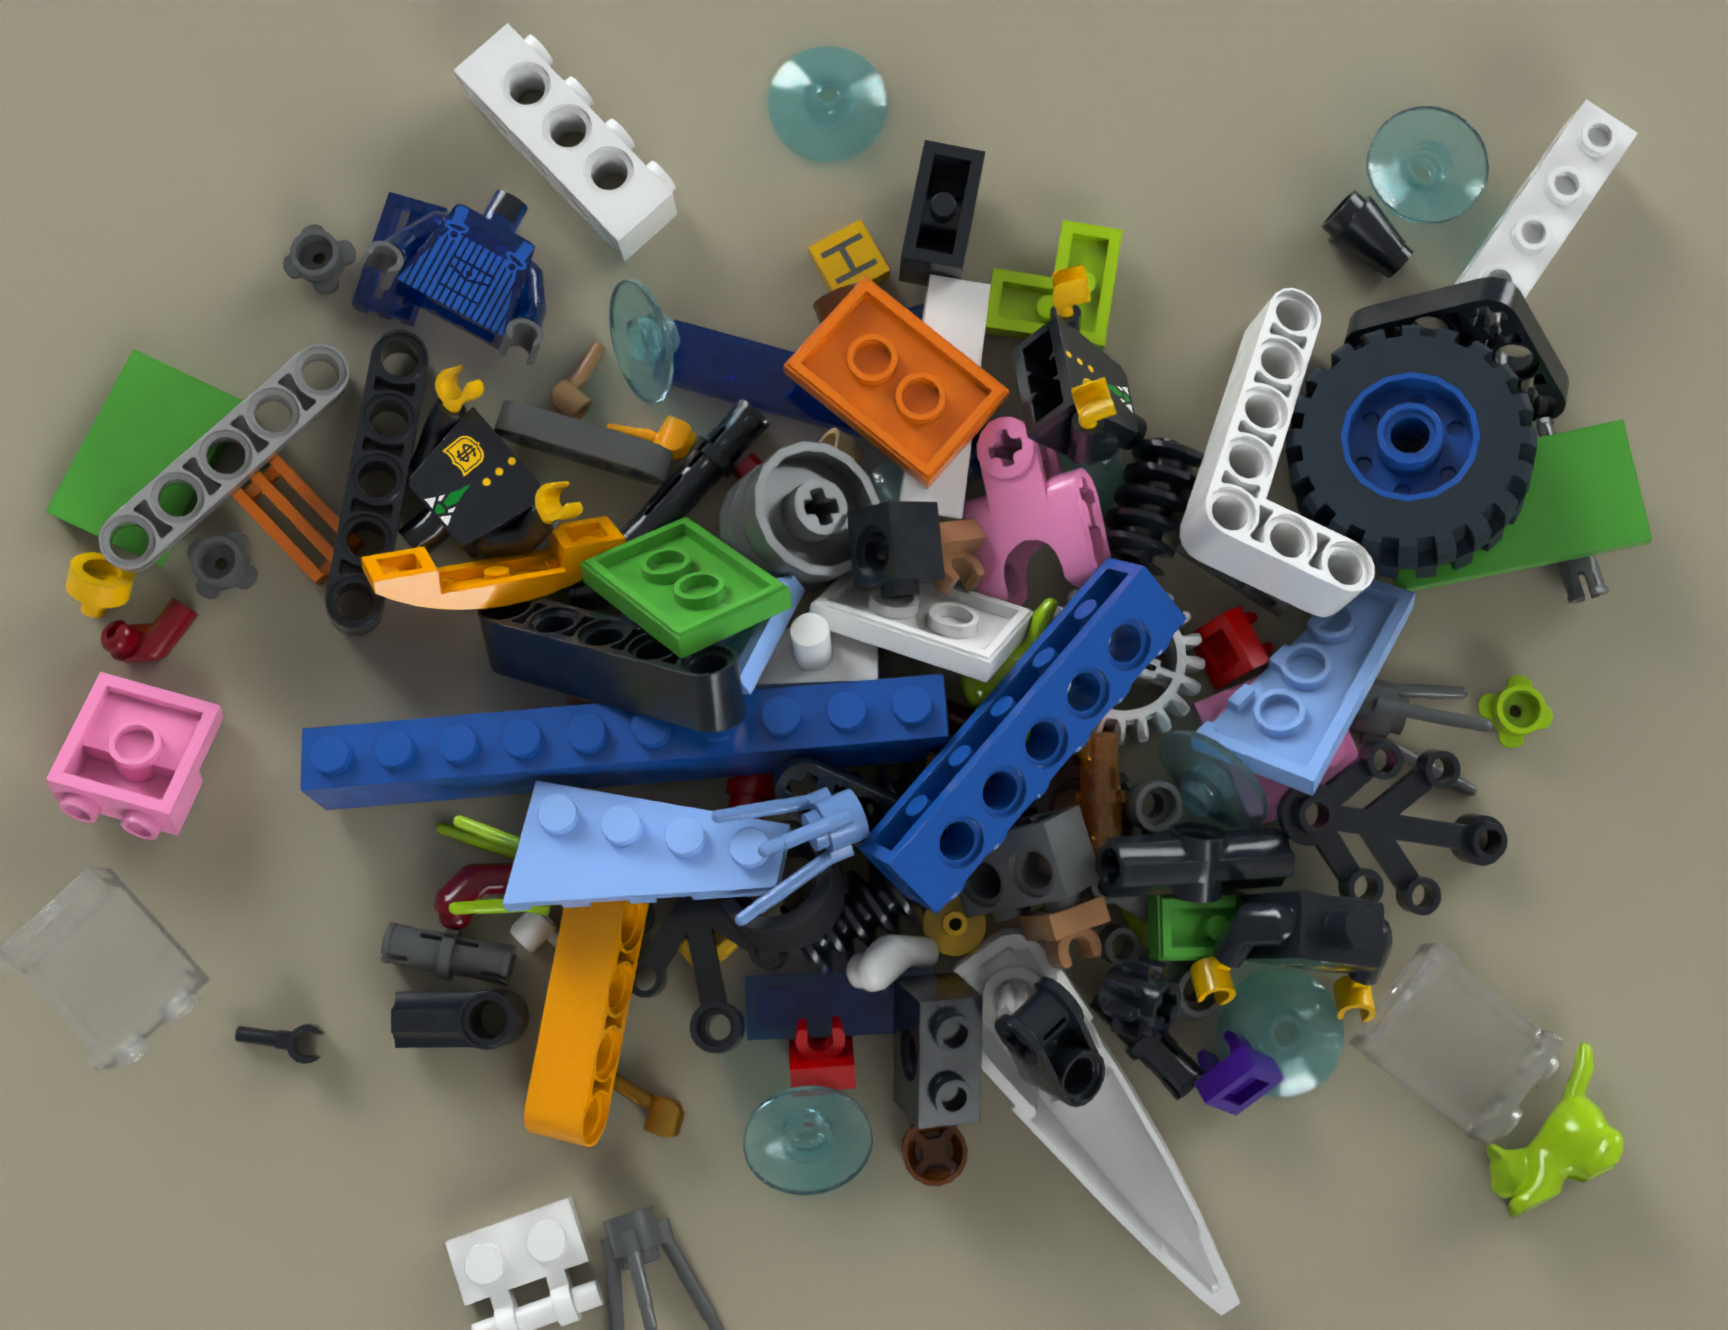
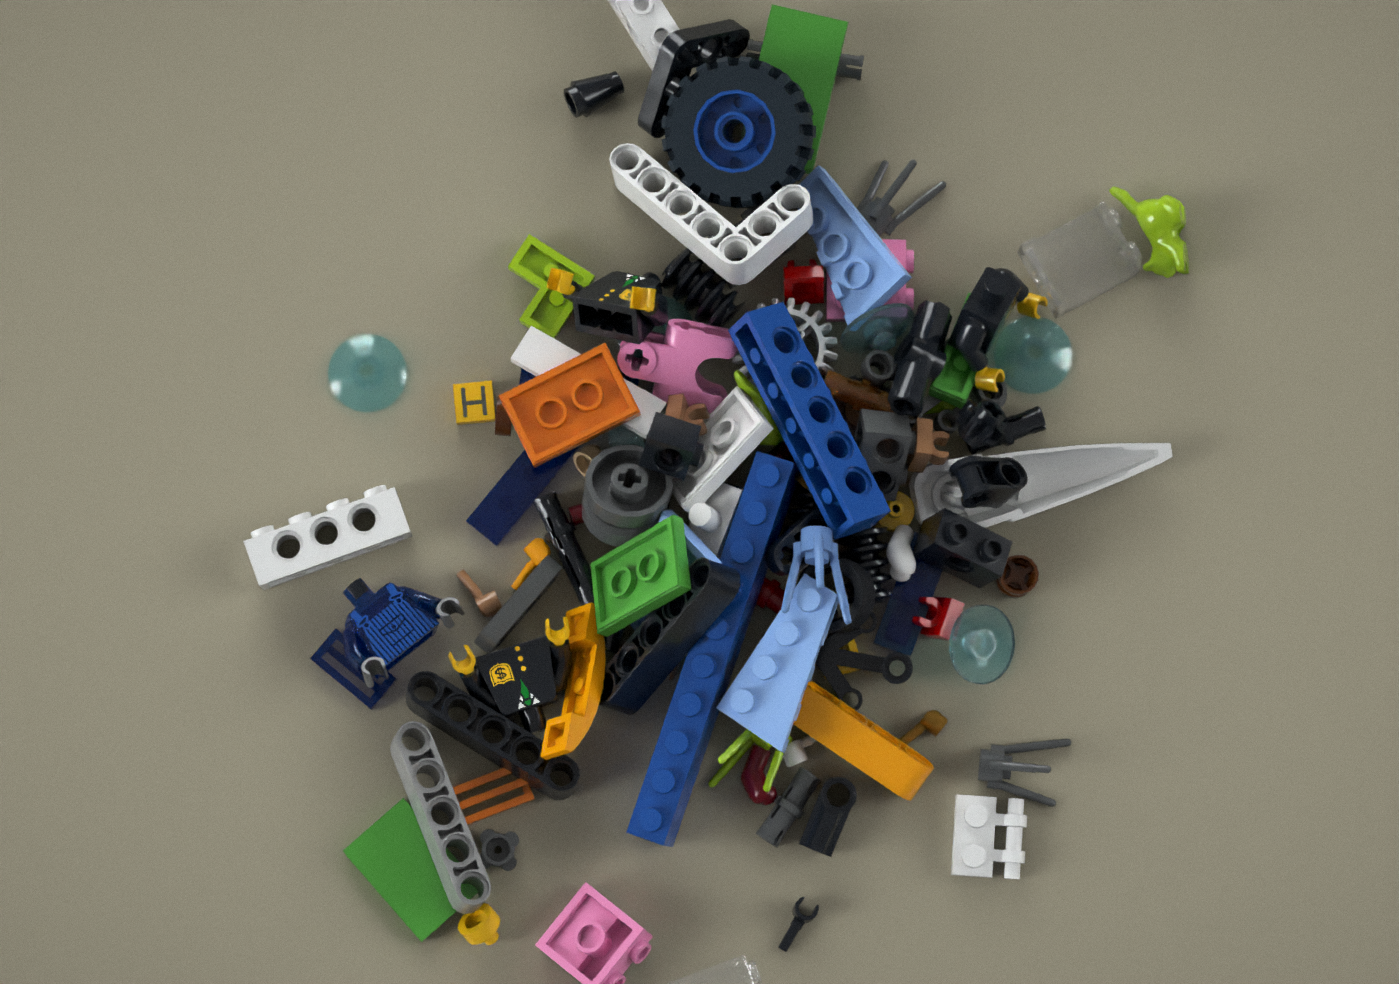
camera: 70 degrees left, 0 degrees up
(148, 640) = (526, 910): dark red arm -> none
(315, 242) = (344, 720): dark grey plate -> none
(642, 340) = (476, 543): clear light blue dish -> none
(941, 212) = (476, 335): black brick -> none
(1238, 1078) = (1048, 388): dark purple tile -> none
(1382, 825) = (942, 244): black plant -> none
(1441, 144) = (563, 21): clear light blue dish -> none
(1532, 707) = (914, 129): lime plate -> none

